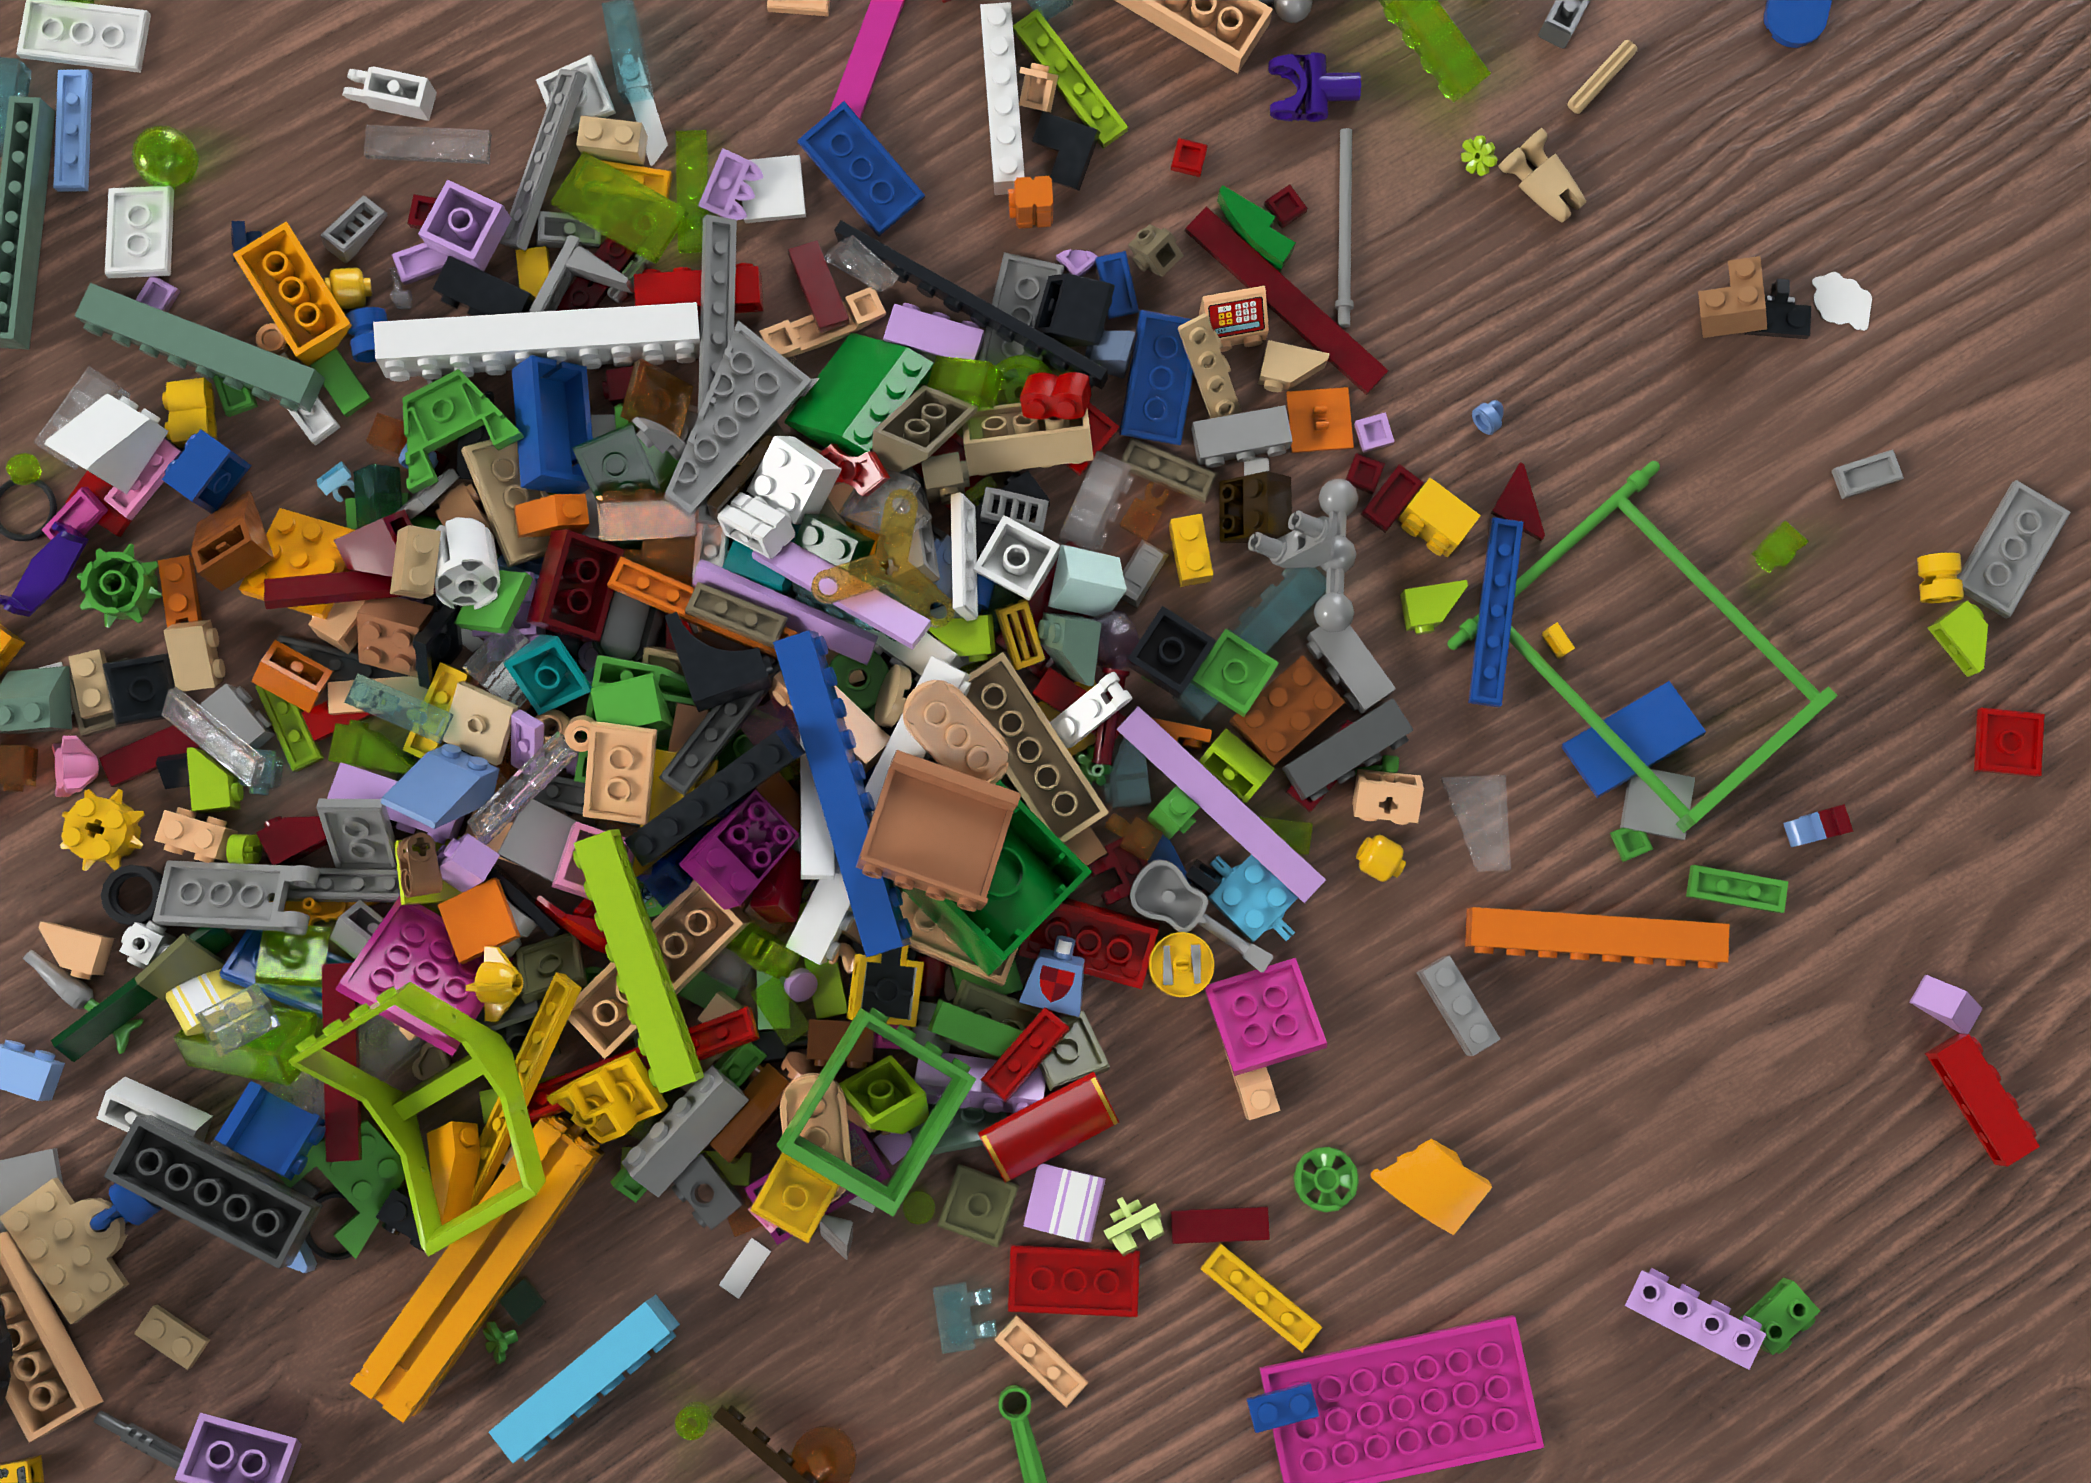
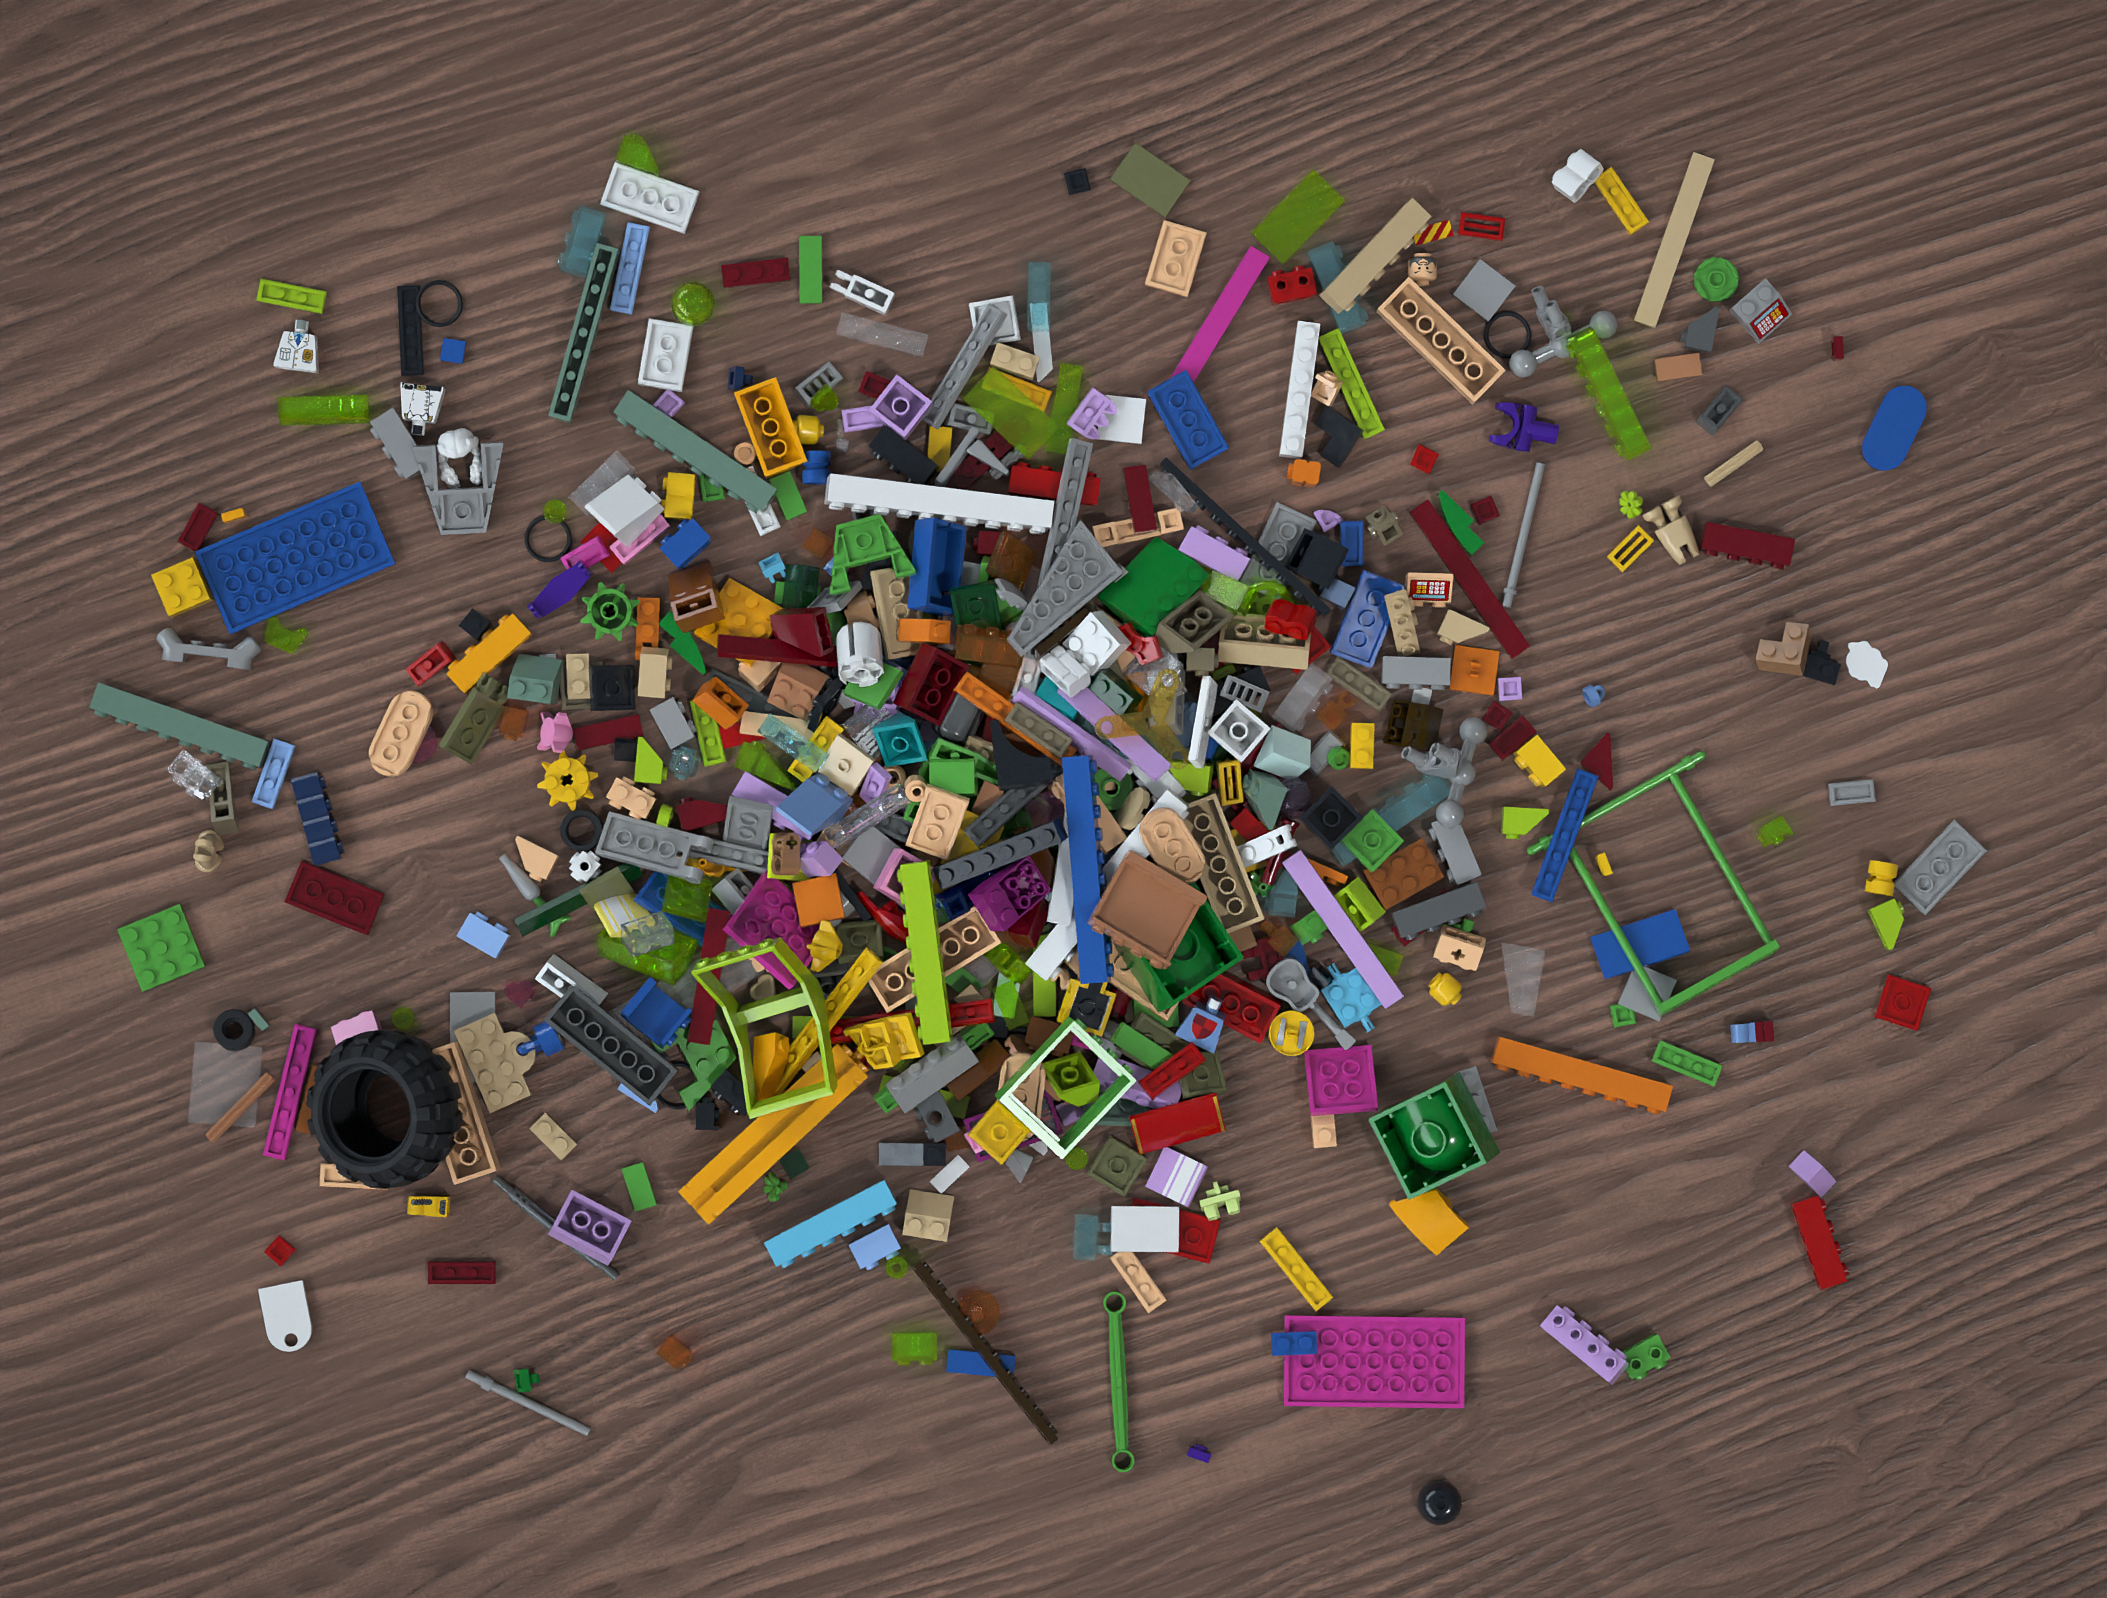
camera: 10 degrees right, 5 degrees up
(89, 1142) = (519, 993): none -> clear pink tile
(213, 737) = (659, 734): clear tile -> none
(233, 610) = (684, 643): none -> green slope
(243, 101) = (755, 273): none -> dark red plate
(306, 1383) = (639, 1186): none -> bright green tile
(316, 82) = (810, 269): none -> bright green tile
(364, 242) = (824, 399): none -> clear neon green tile
(382, 1259) = (707, 1114): none -> black brick
(415, 562) = (829, 649): tan brick -> none
(657, 1397) = (875, 1246): none -> light blue brick
(686, 1251) = (912, 1154): none -> slope
(724, 1336) = (928, 1215): none -> tan slope
(800, 984) = (1028, 990): lavender tile -> none
(1034, 1288) = (1144, 1229): none -> white tile
(1162, 574) = (1338, 758): none -> bright green tile
(1220, 1225) = (1279, 1214): dark red tile -> none
(1326, 1179) = (1358, 1199): bright green piece -> none
(1417, 1068) = (1434, 1136): none -> green piece
(1478, 236) = (1616, 562): none -> yellow tile
(1647, 176) = (1747, 544): none -> dark red brick

